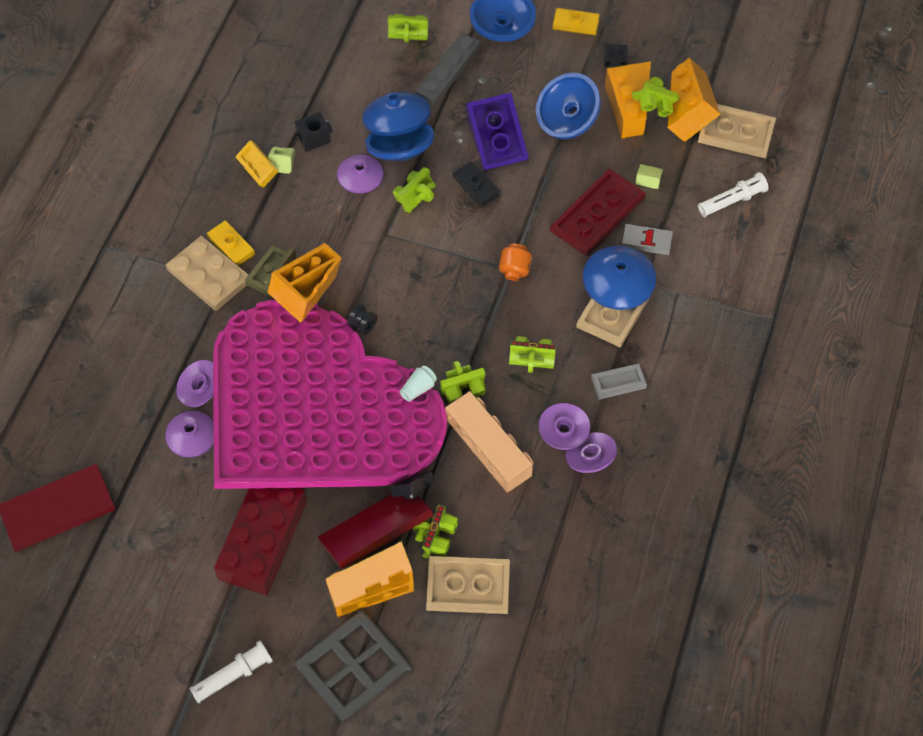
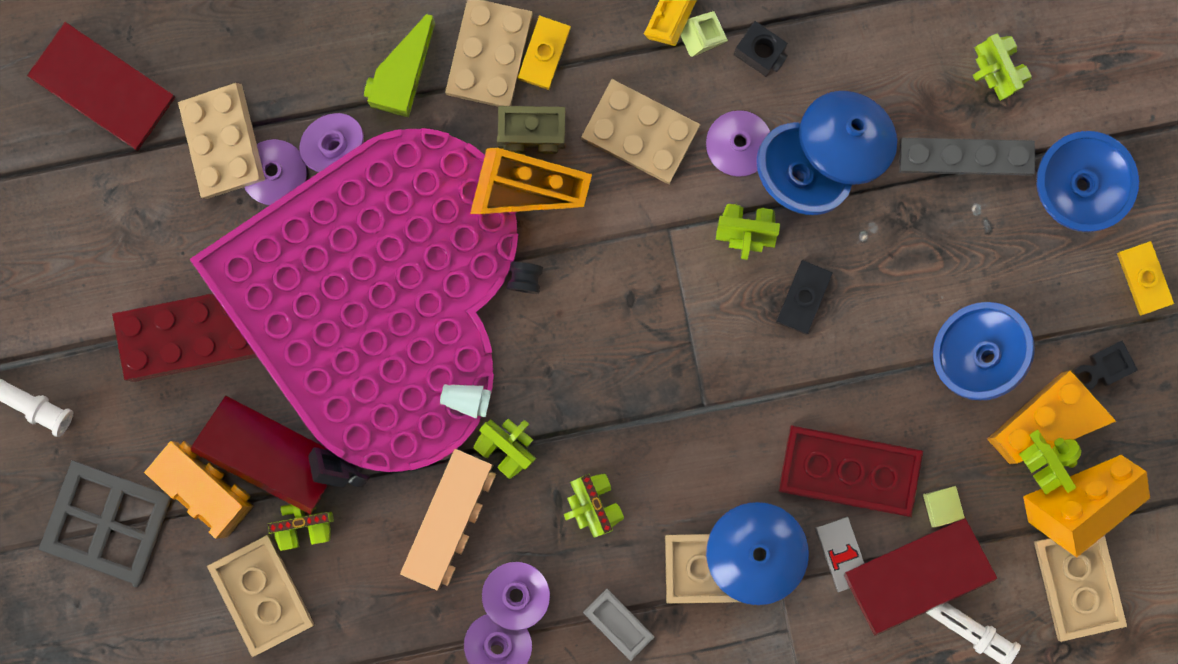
camera: 60 degrees right, 25 degrees up
(148, 448) = (221, 140): none -> tan plate
(188, 327) = (399, 74): none -> lime slope
(316, 218) = (640, 131): none -> tan plate
(496, 131) = (894, 279): dark purple slope -> none
(515, 262) = (710, 413): orange head -> none
(685, 202) = (920, 576): none -> dark red tile

